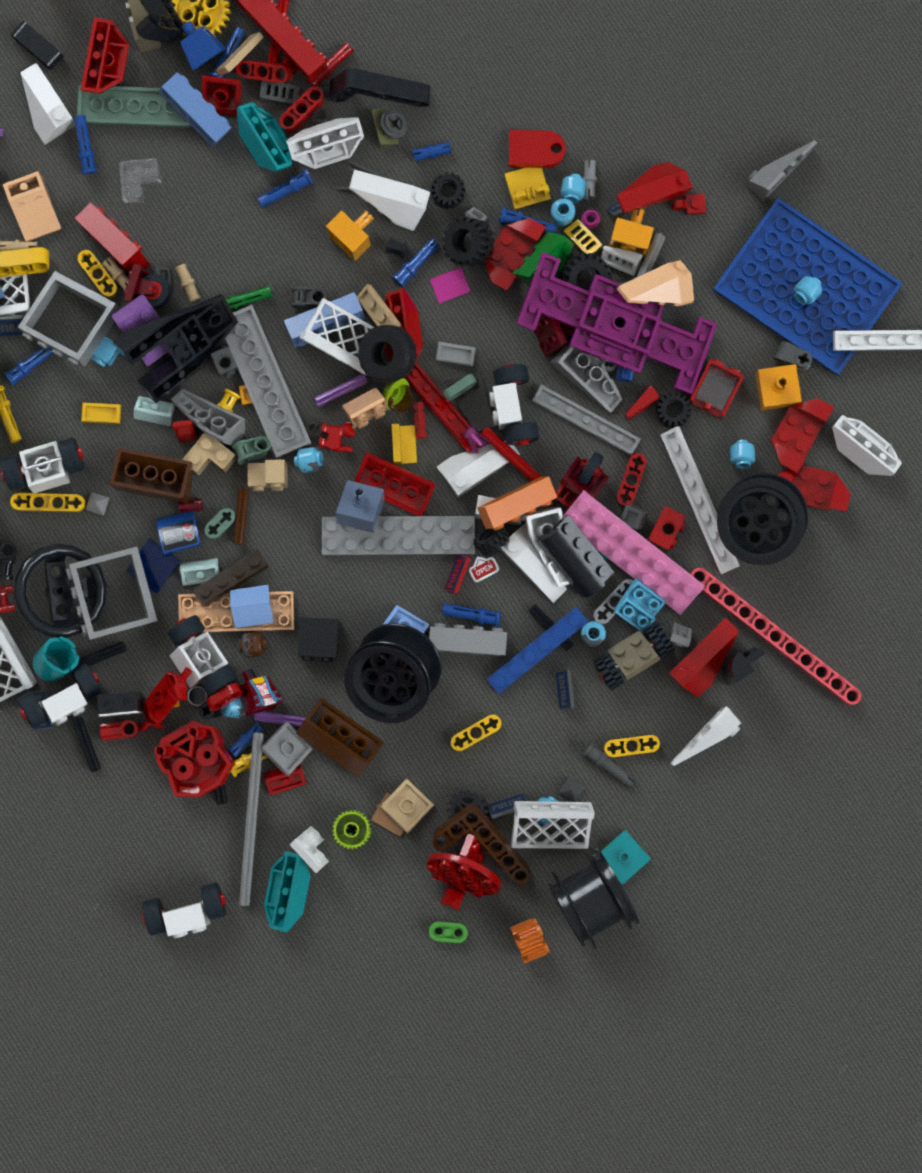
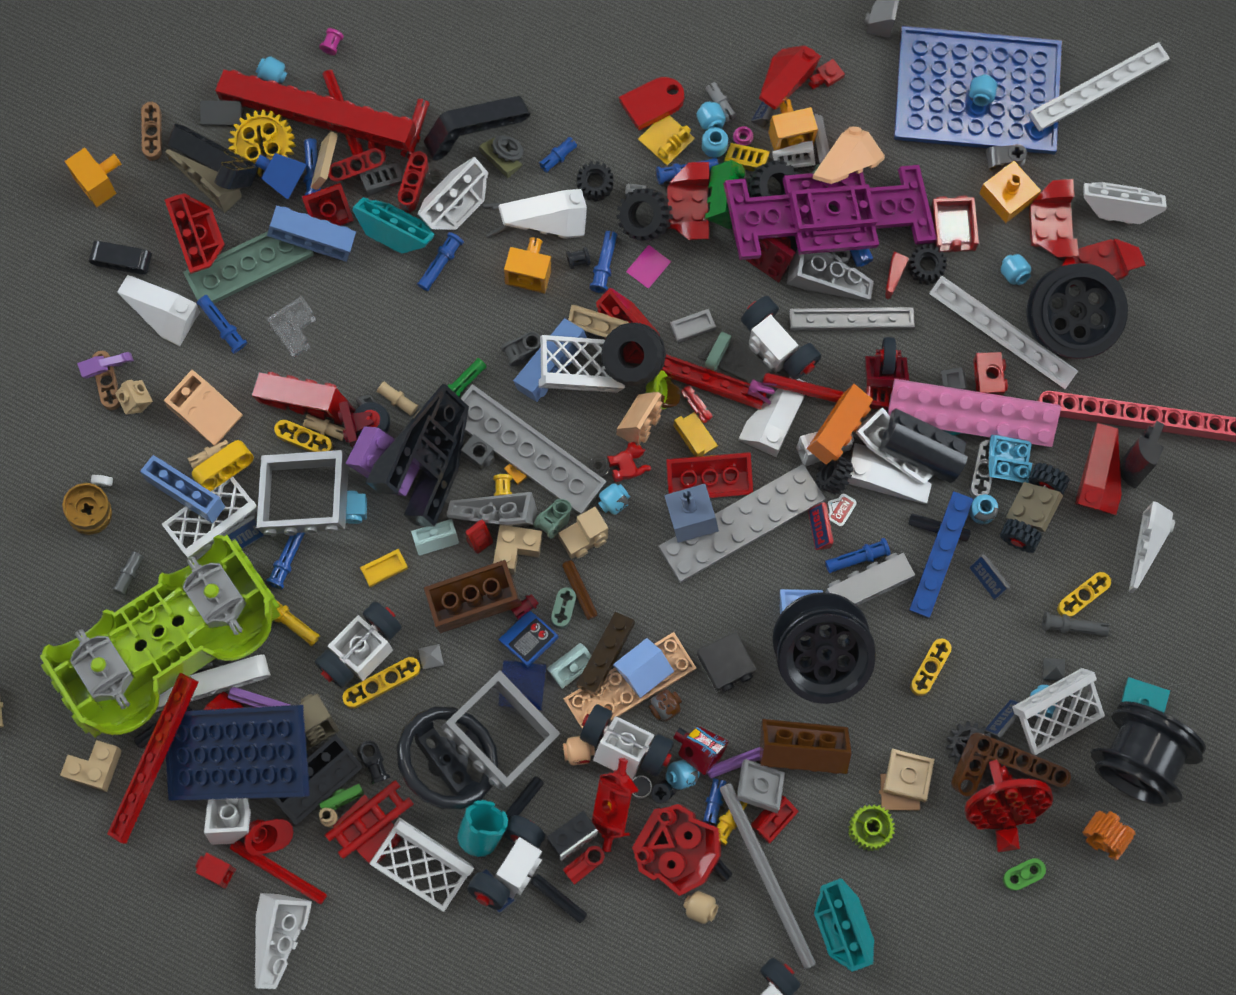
camera: 35 degrees left, 10 degrees down
(162, 642) = (578, 751): none -> light nougat head
(187, 813) = (701, 907): none -> tan head
(224, 697) = (672, 767): red beam -> none
(306, 846) = (837, 867): white plate -> none
(341, 390) = (604, 418): medium lavender axle -> none
(631, 495) = (931, 340): red beam -> none
(681, 635) = (1066, 463): light grey plate -> none

